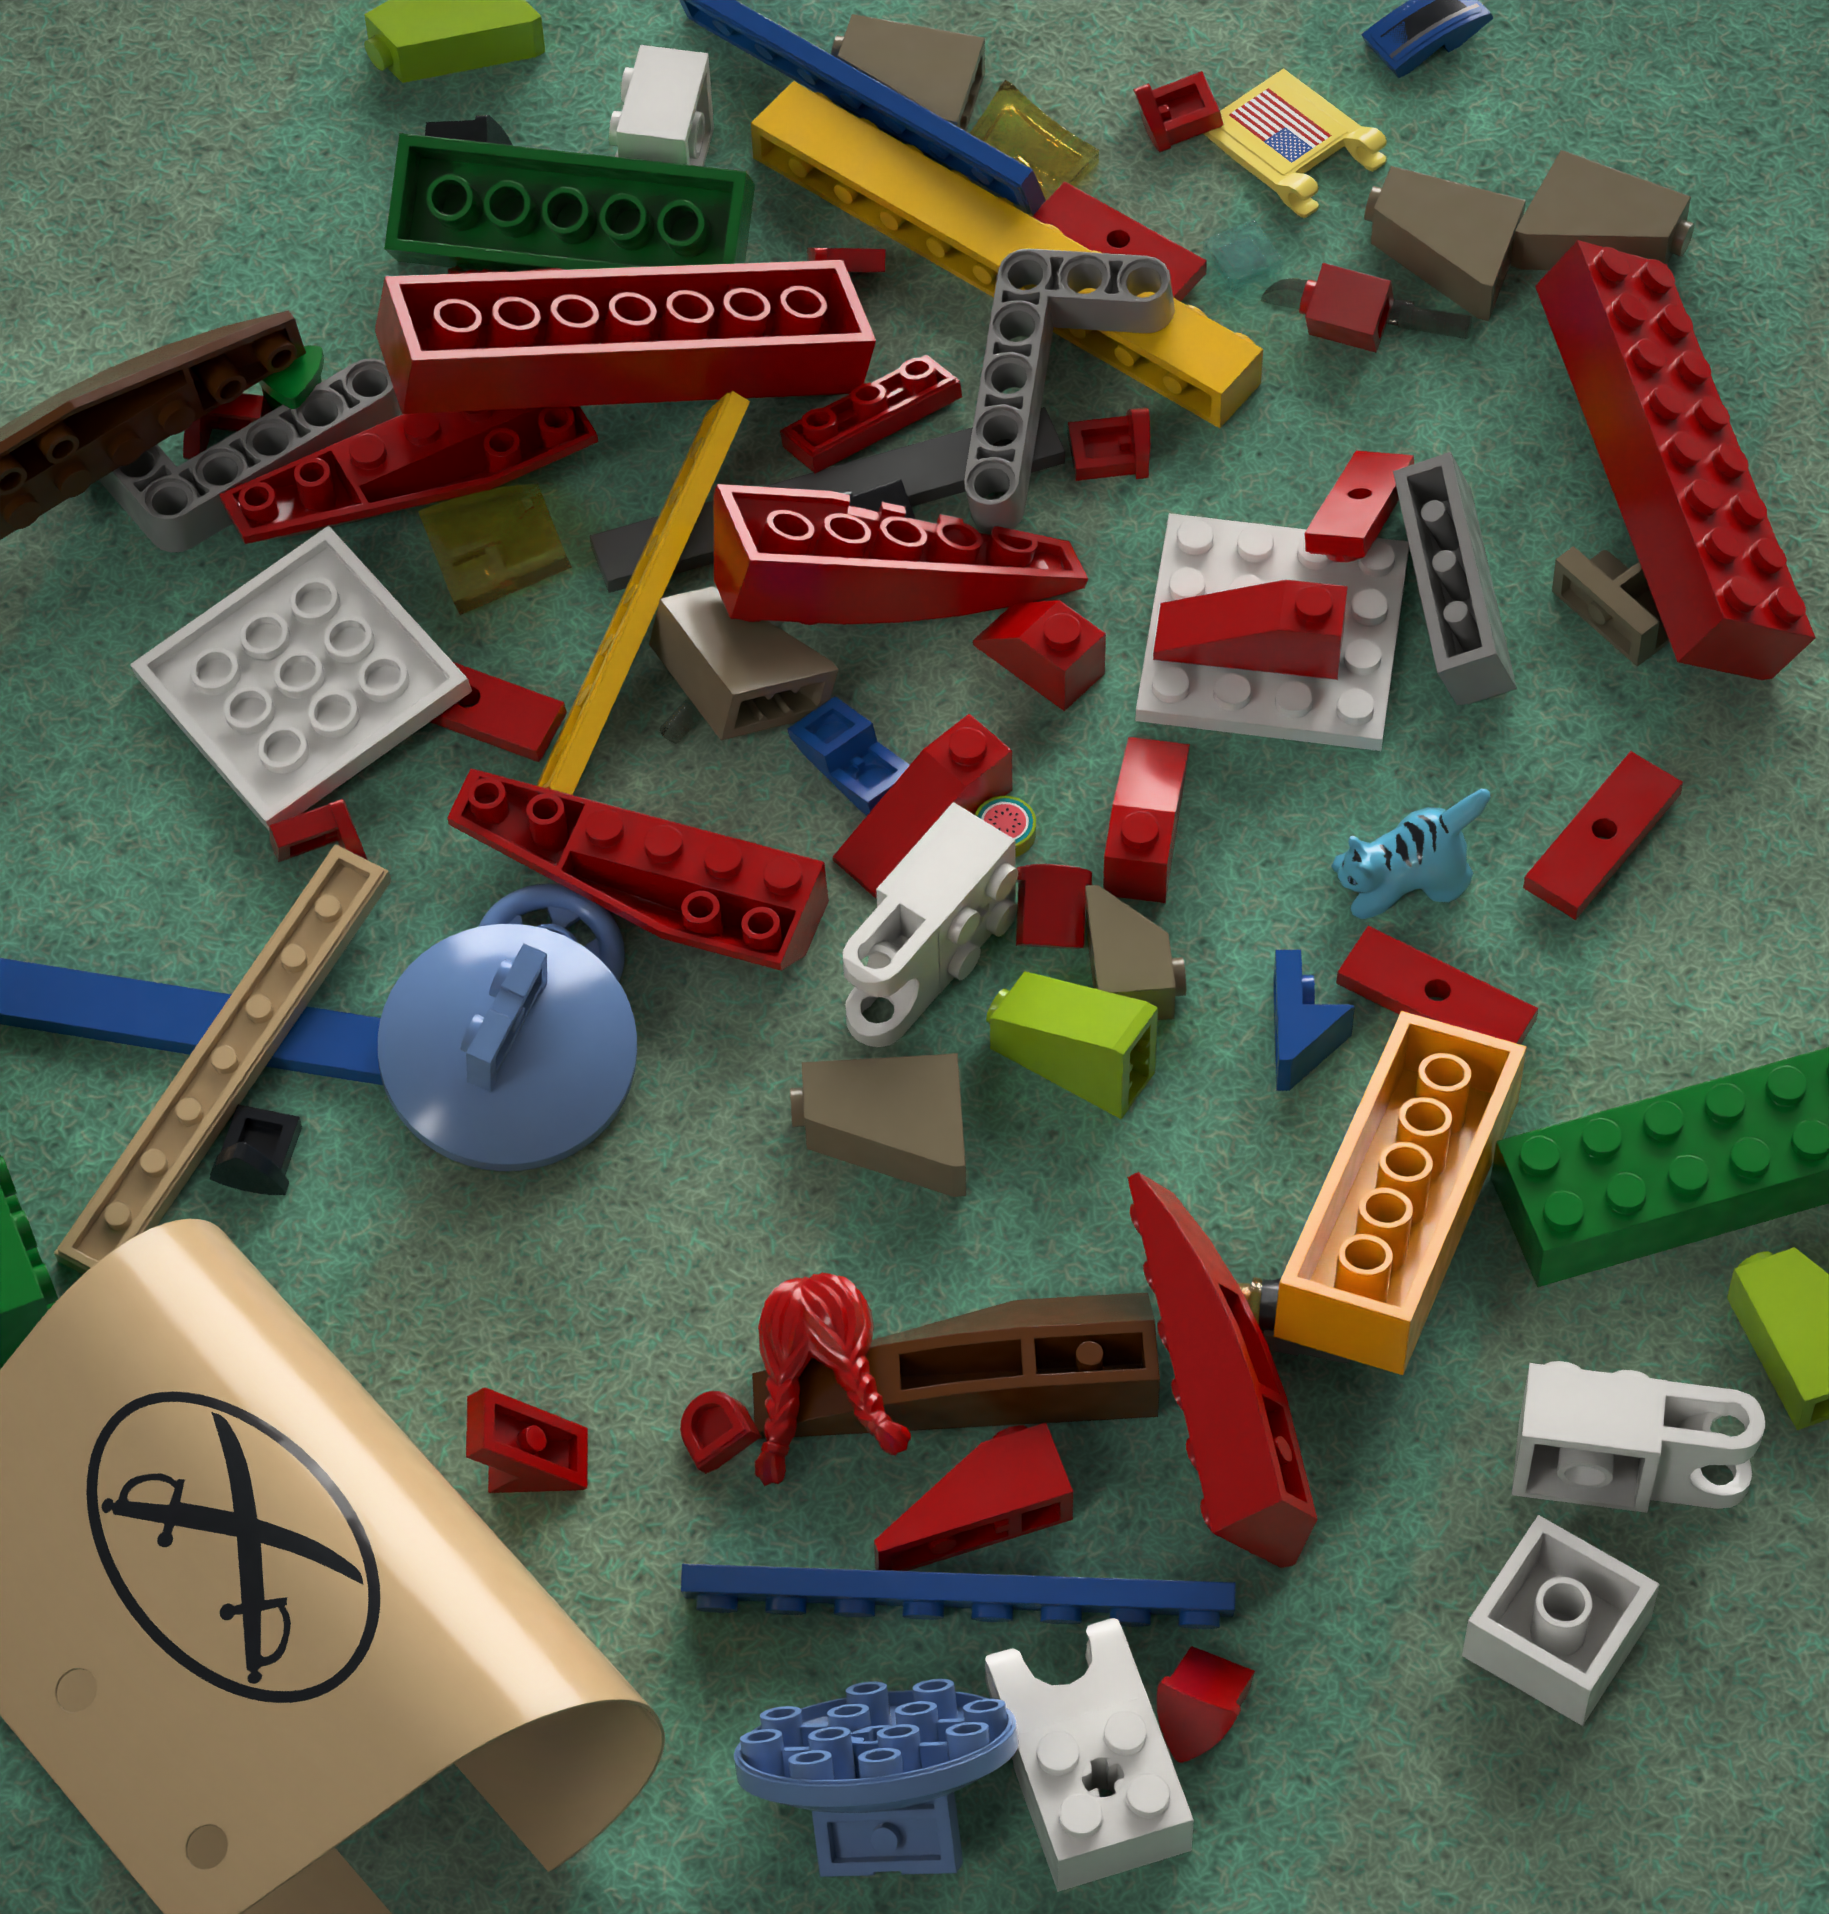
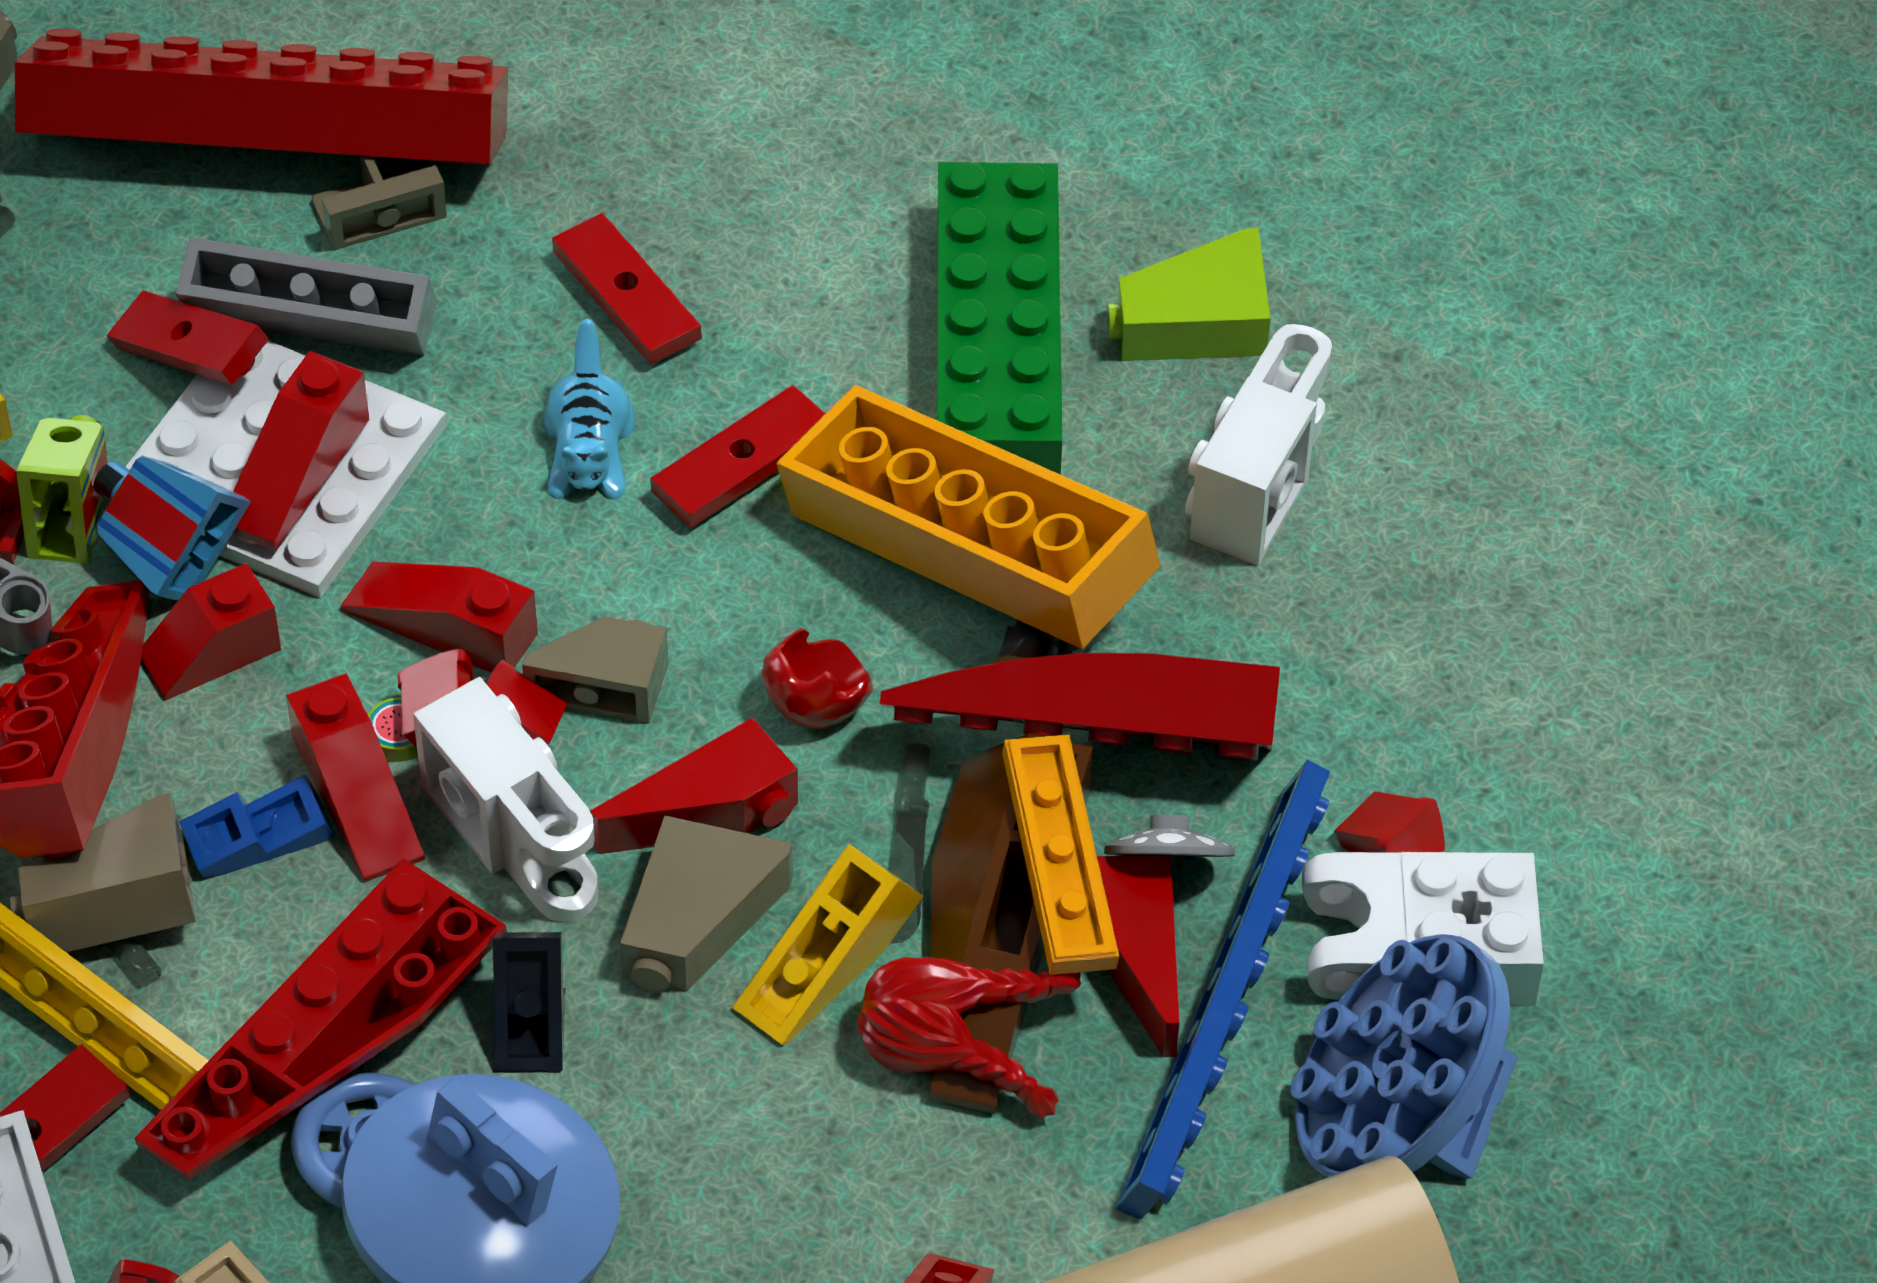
camera: 75 degrees left, 5 degrees down
(716, 1429) = (978, 1137): red tile -> none
(728, 1019) = (528, 1001): none -> black slope
(891, 1240) = (827, 944): none -> yellow slope
(1013, 1382) = (1060, 855): none -> light orange tile
(1021, 1283) = (910, 829): none -> clear smoke piece
(1025, 1097) = (723, 784): none -> red slope
(1040, 833) = (430, 681): none -> tile
(1077, 1038) = (685, 707): lime slope -> none
(1087, 1491) = (1169, 837): none -> light grey dish
(1135, 563) = (166, 522): none -> torso
(1153, 471) = (58, 462): none -> lime torso
(1179, 1133) = (815, 681): none -> red hair
(1303, 1030) = (733, 567): blue slope -> none
(1560, 1620) = (1413, 550): white brick -> none

